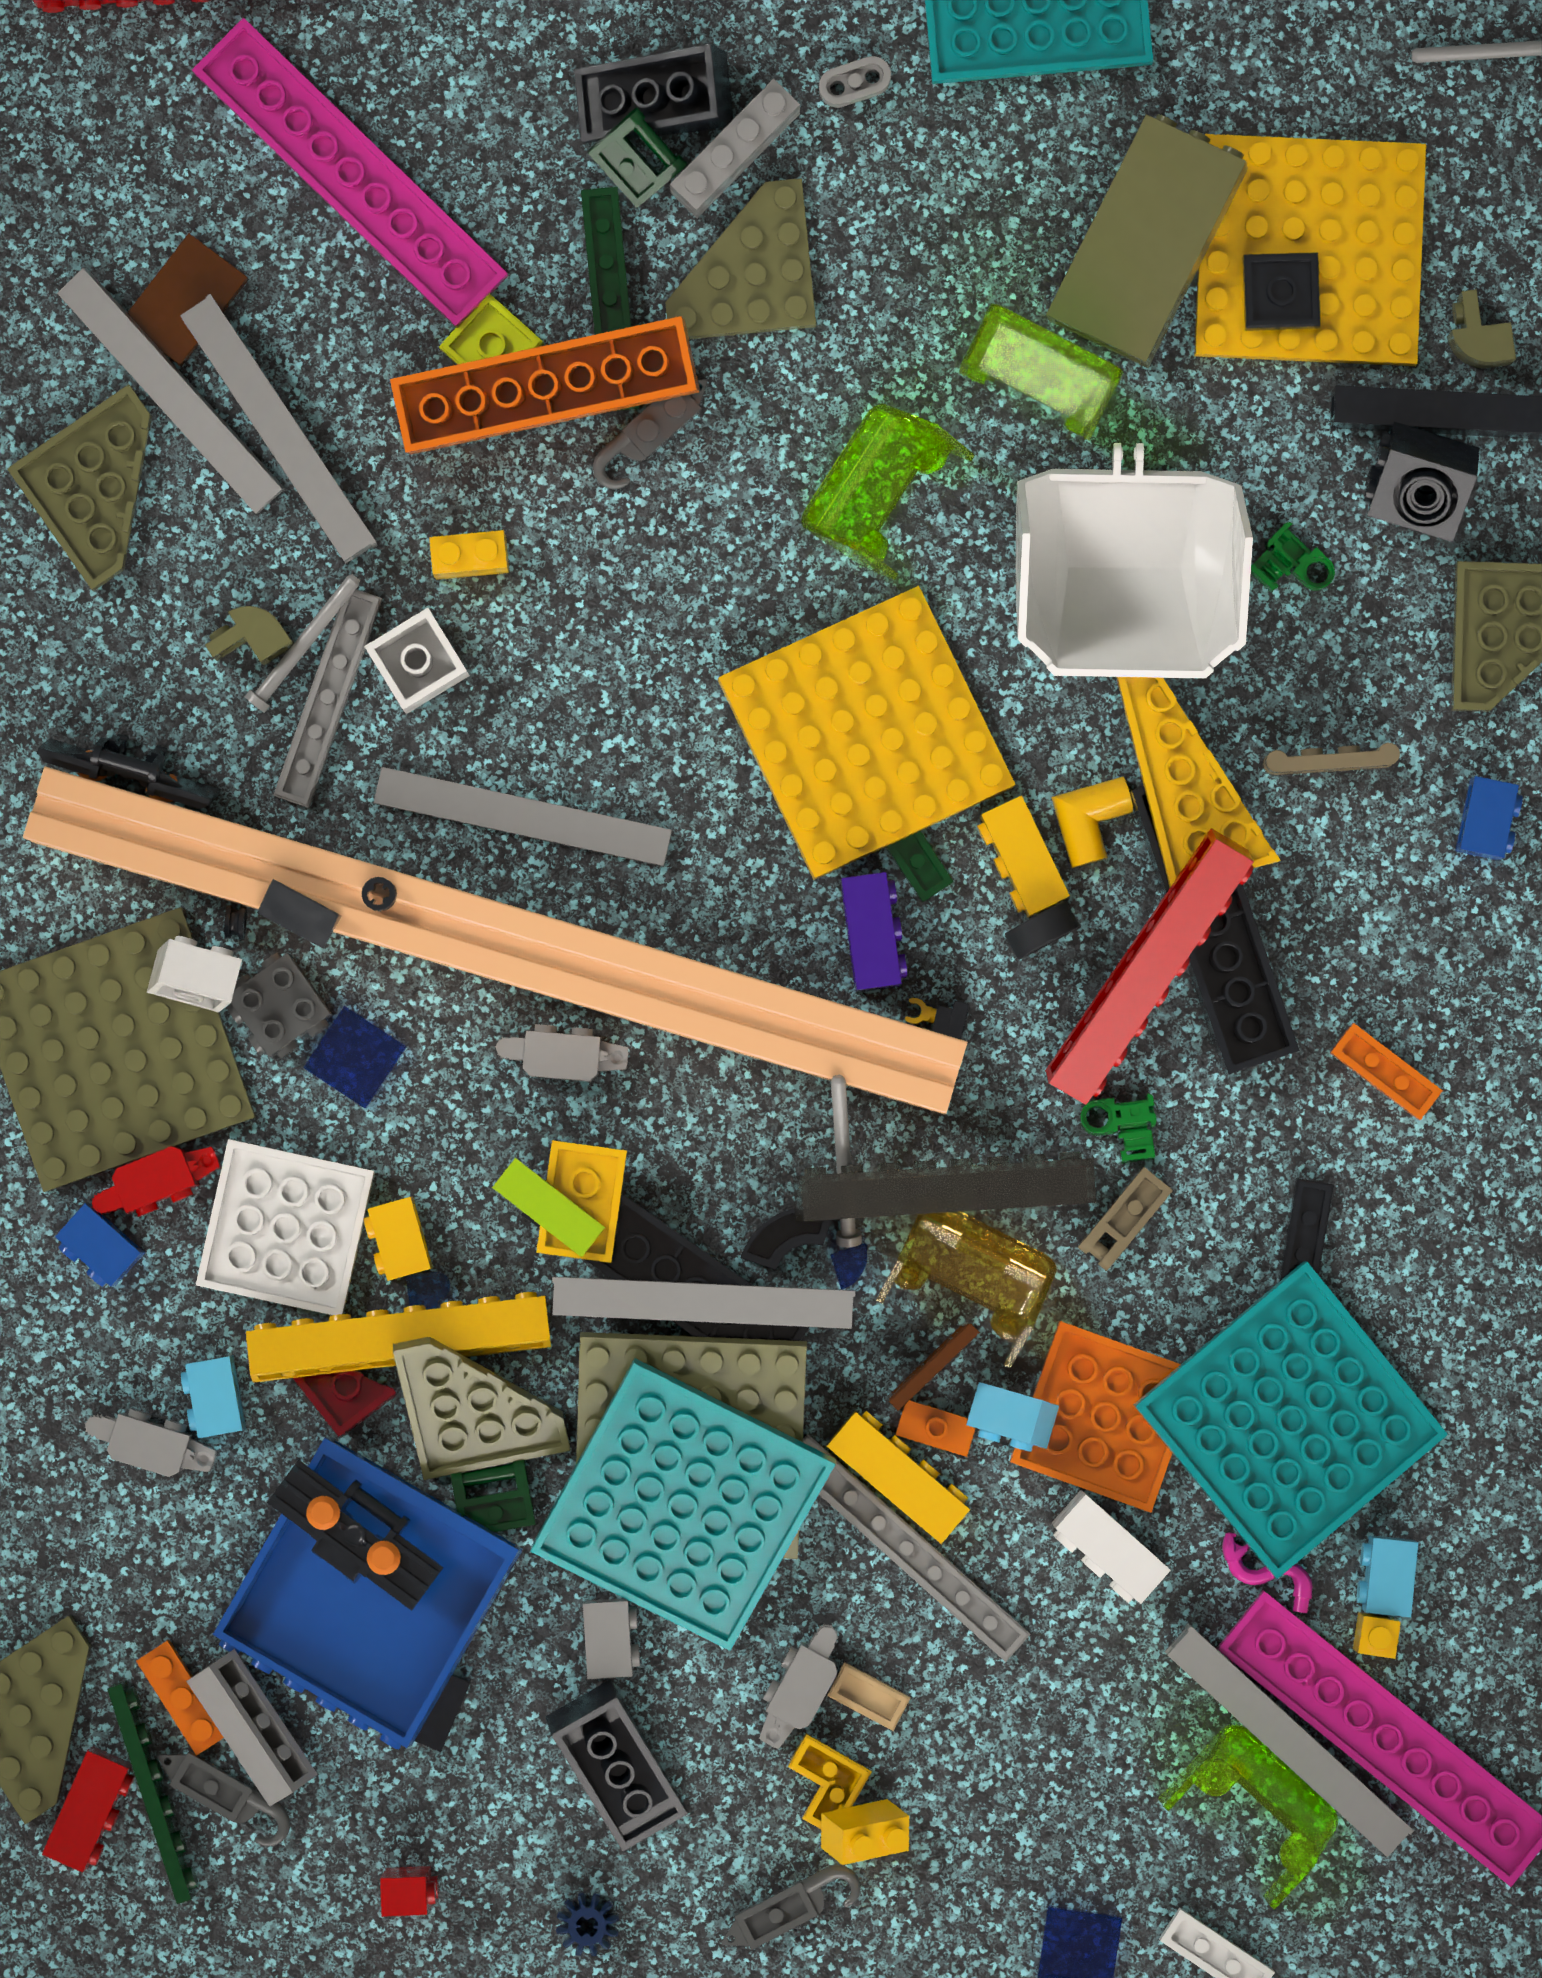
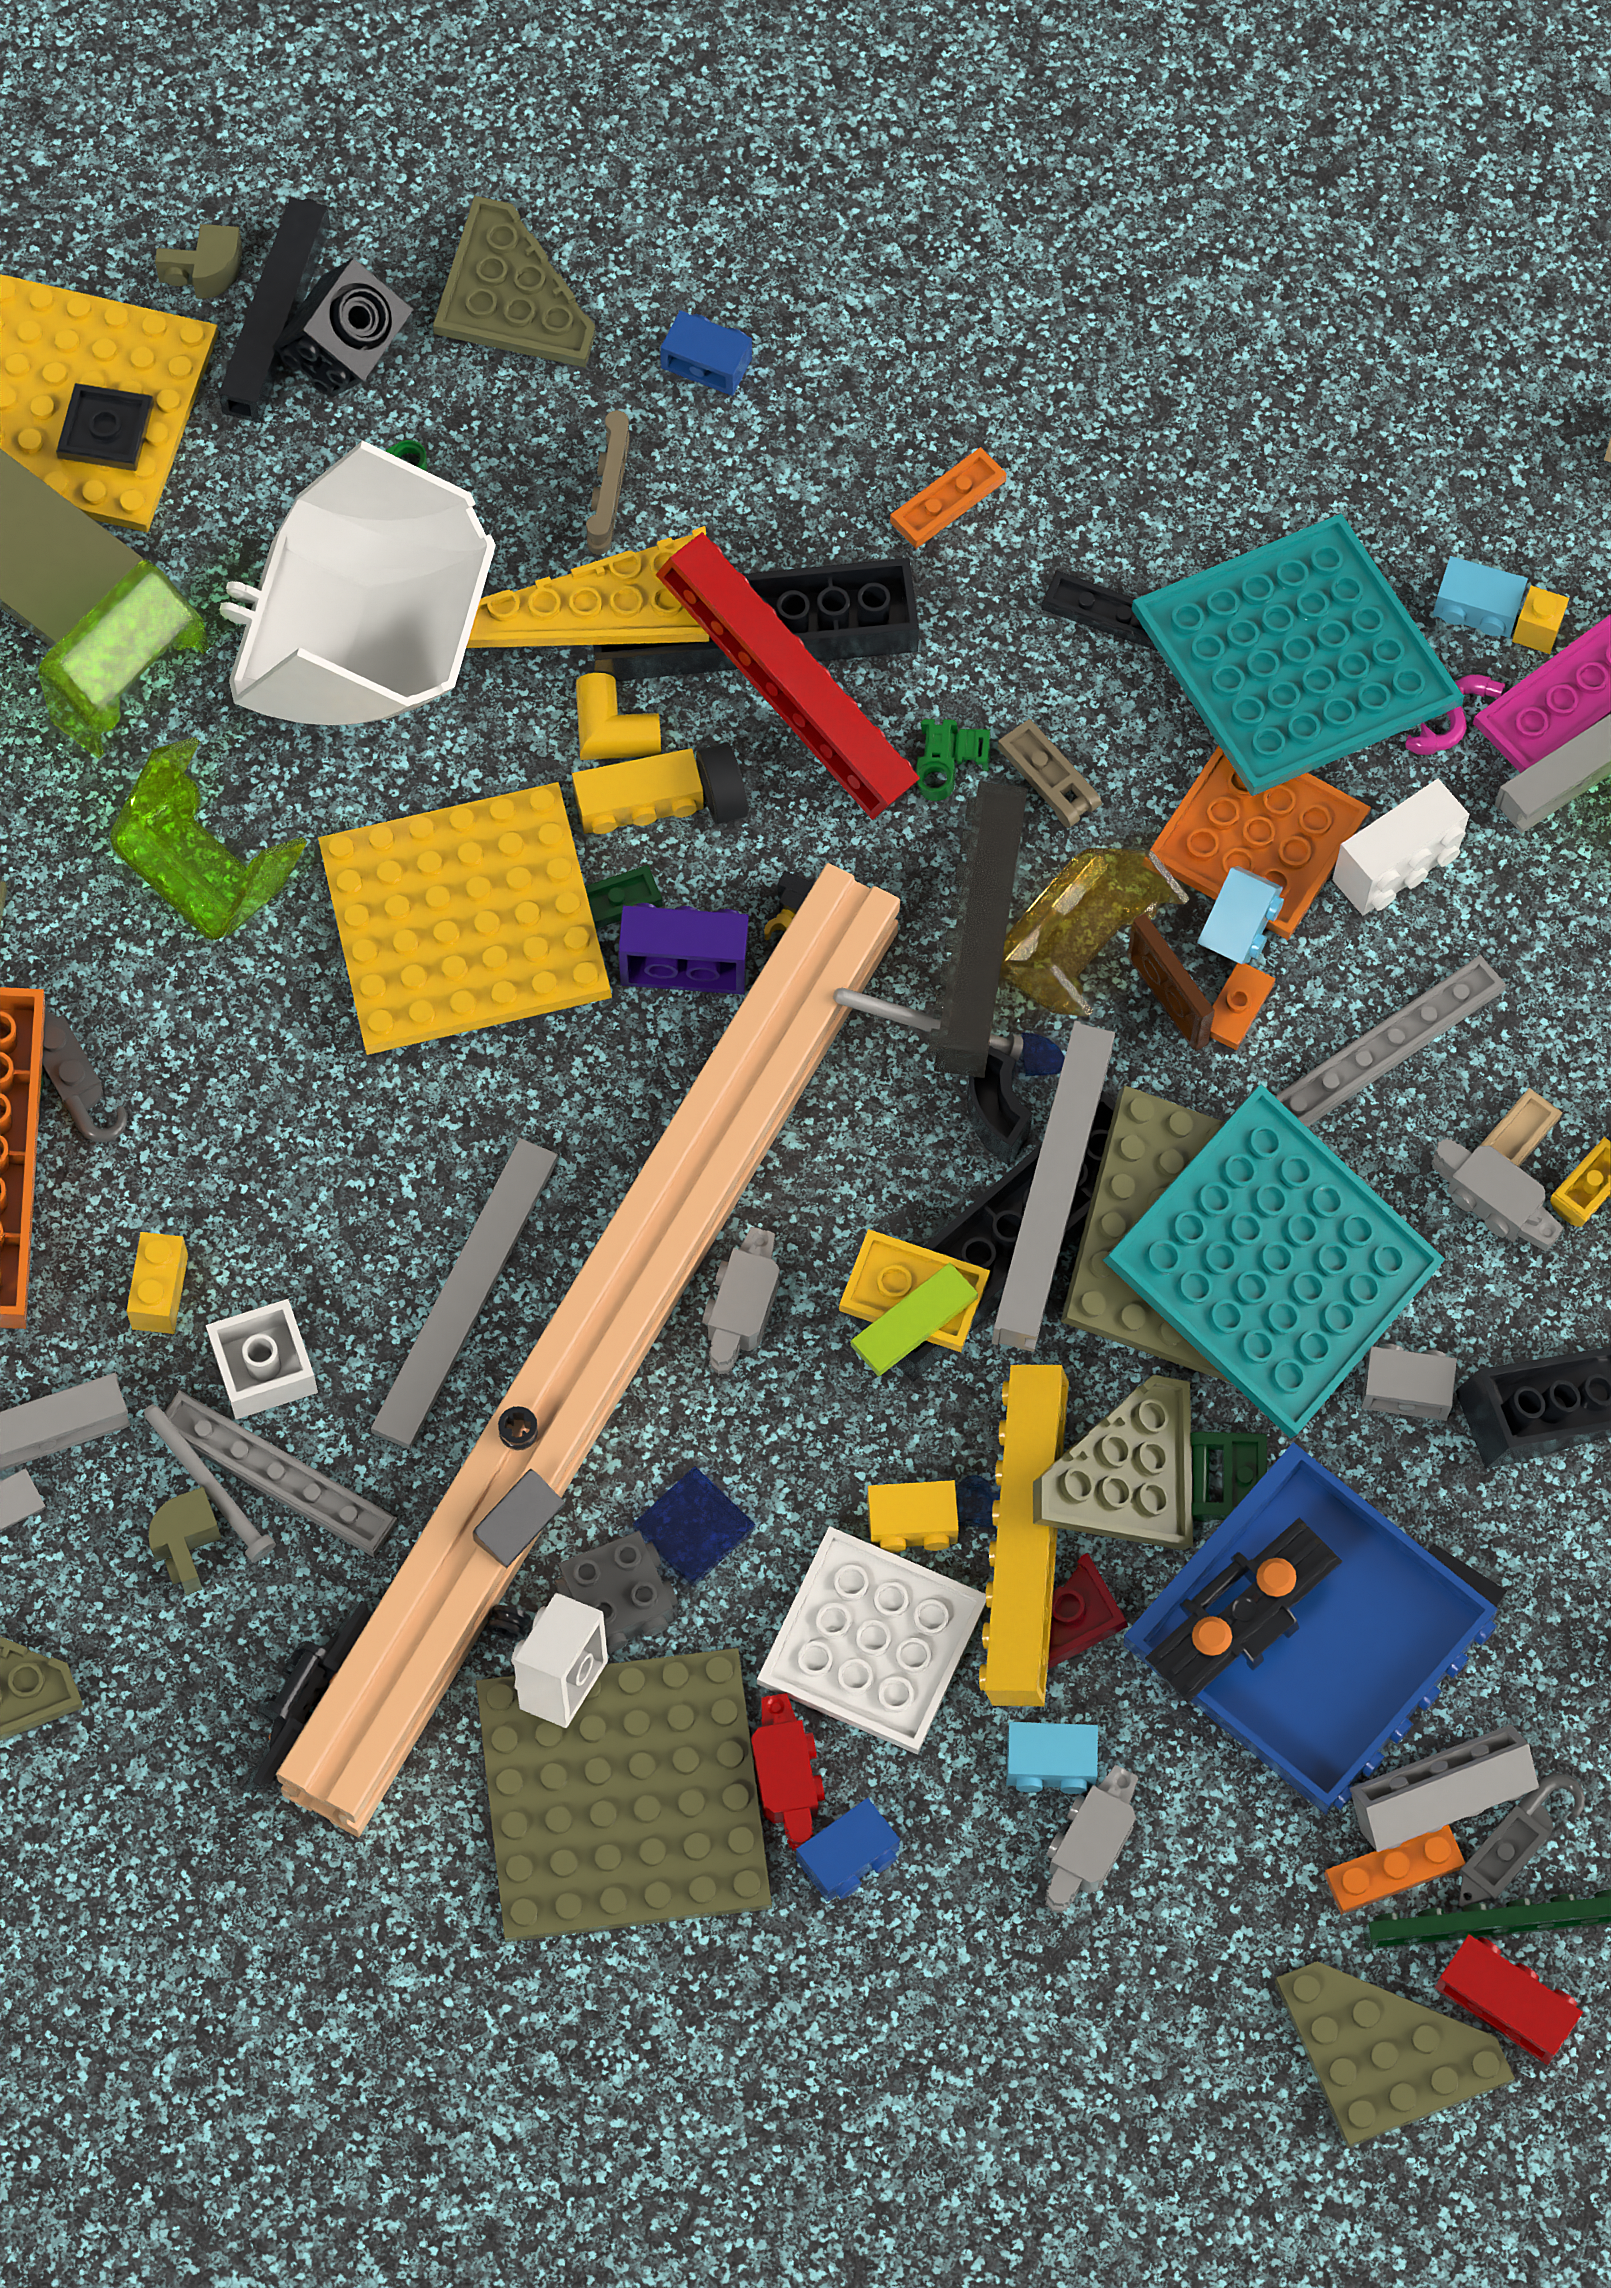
camera: 80 degrees left, 20 degrees down
(898, 1476) = (1286, 1046): yellow brick -> none

